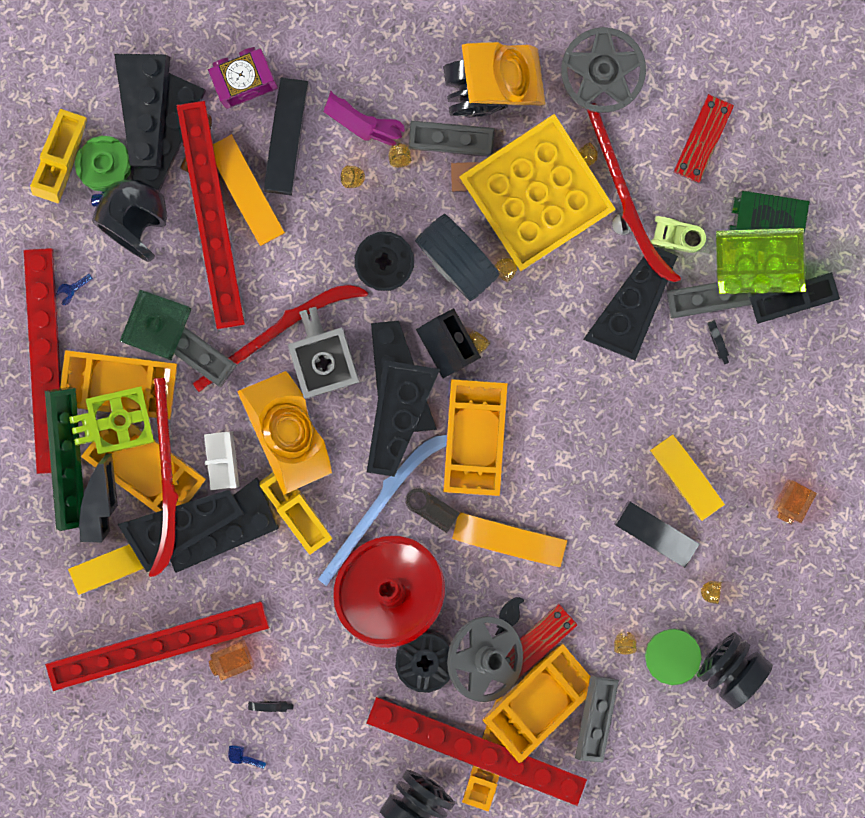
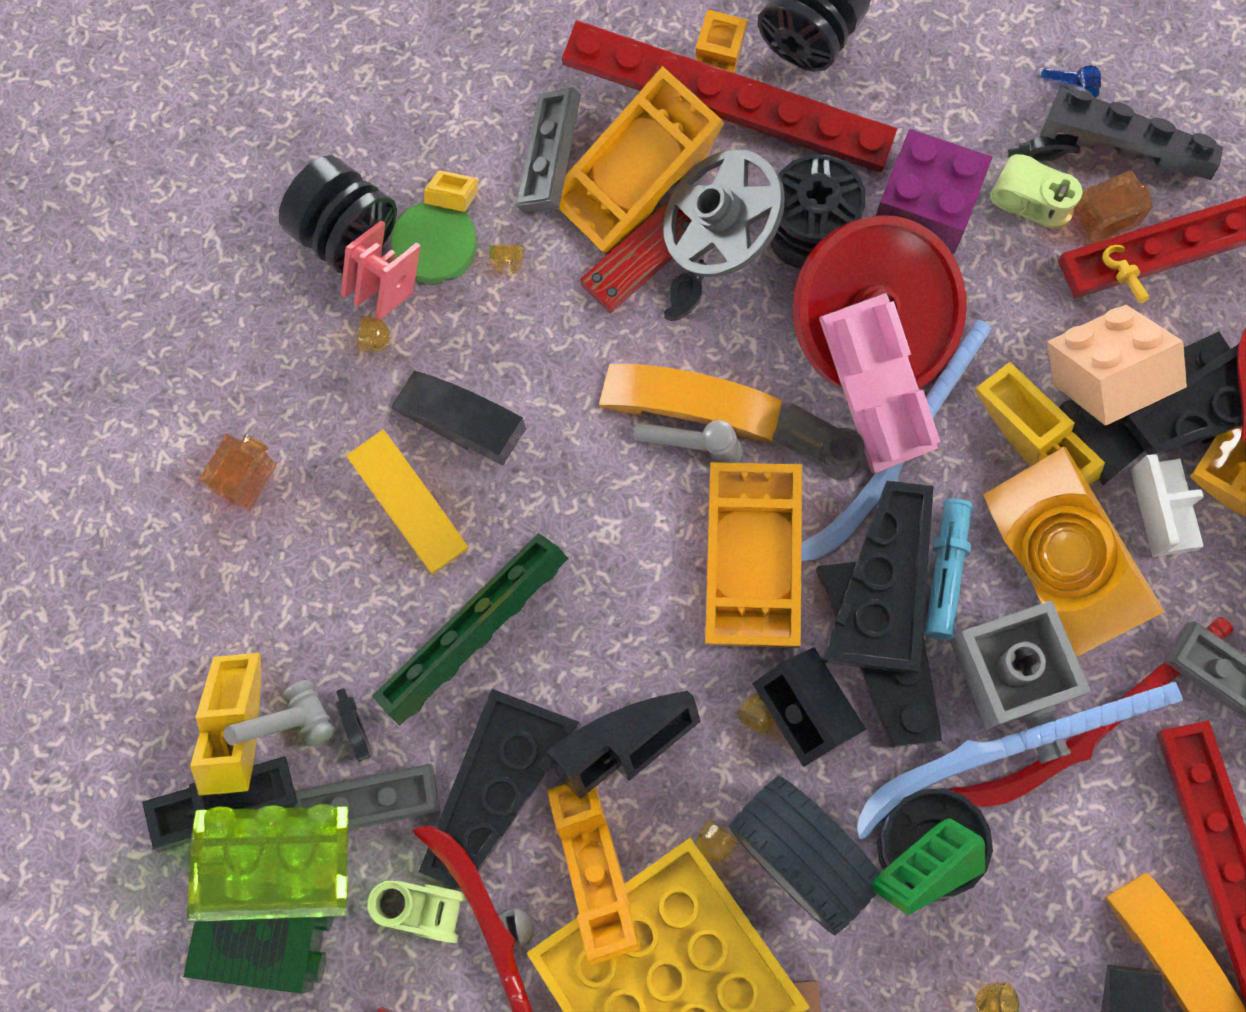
camera: 175 degrees left, 15 degrees down
(226, 717) = (1131, 134): none -> black wing
(231, 609) = (1127, 273): none -> yellow hand
(247, 547) = (1117, 364): none -> light nougat brick
(285, 677) = (1034, 190): none -> yellowish green piece
(347, 675) = (935, 185): none -> magenta brick
(352, 313) = (975, 754): none -> light blue piece
(357, 426) = (951, 551): none -> medium azure pin
(375, 252) = (945, 853): none -> green slope
(393, 541) = (879, 382): none -> bright pink brick
(495, 509) = (716, 438): none -> light grey piece
(557, 327) = (623, 741): none -> black slope
(576, 254) = (595, 875): none -> light orange slope
(648, 398) = (469, 629): none -> dark green plate
(661, 691) = (451, 191): none -> yellow tile
(708, 631) = (369, 272): none -> coral piece
(748, 349) = (302, 711): none -> light grey piece
(791, 344) = (227, 699): none -> yellow slope

